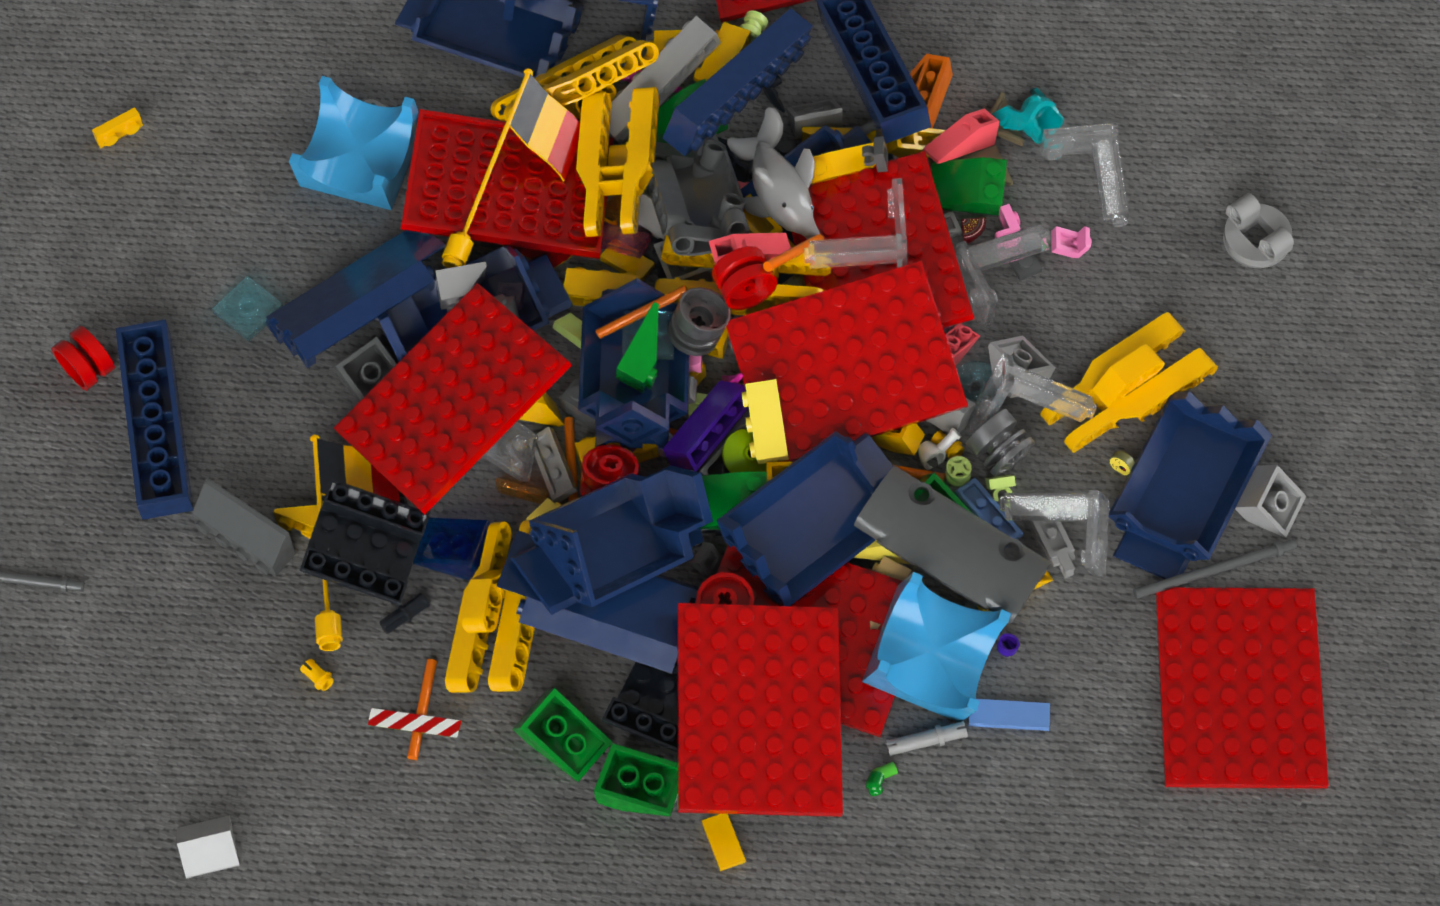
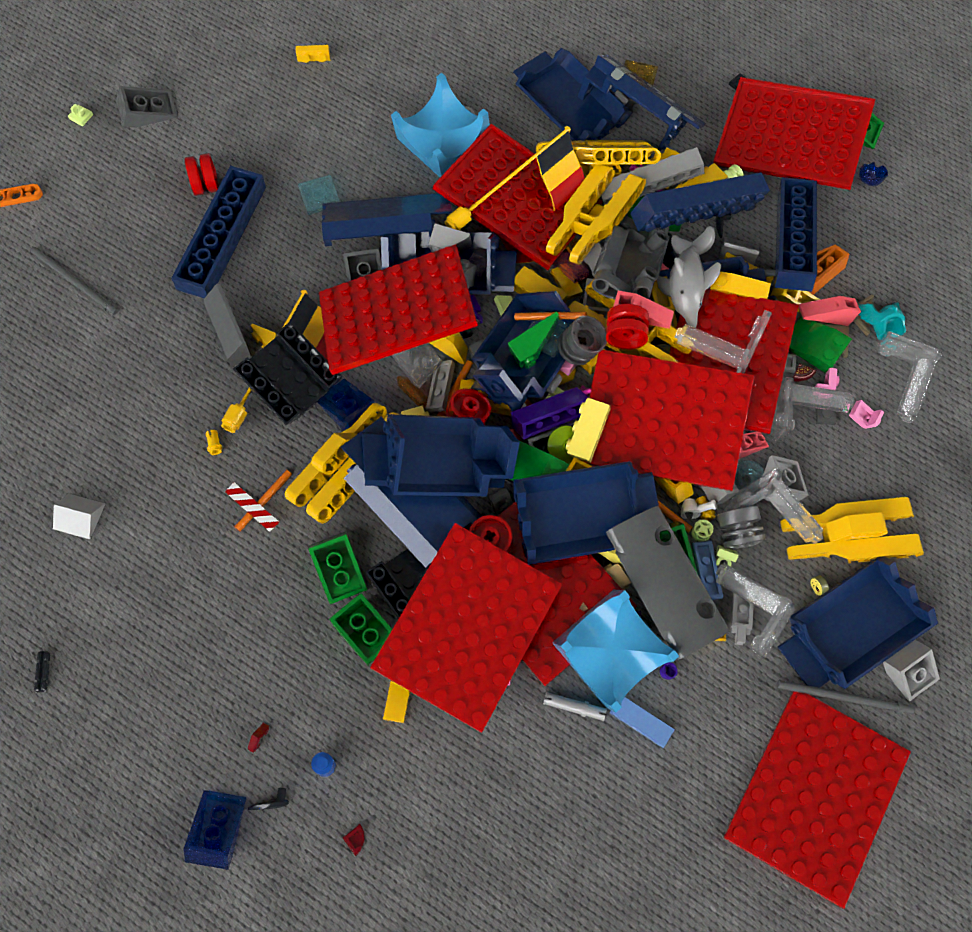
camera: 25 degrees right, 5 degrees up
(404, 613) = (290, 432): black axle -> none
(789, 254) = (665, 326): orange bar -> none
(877, 154) = (764, 291): dark grey tile -> none
(877, 776) = (525, 714): green arm -> none

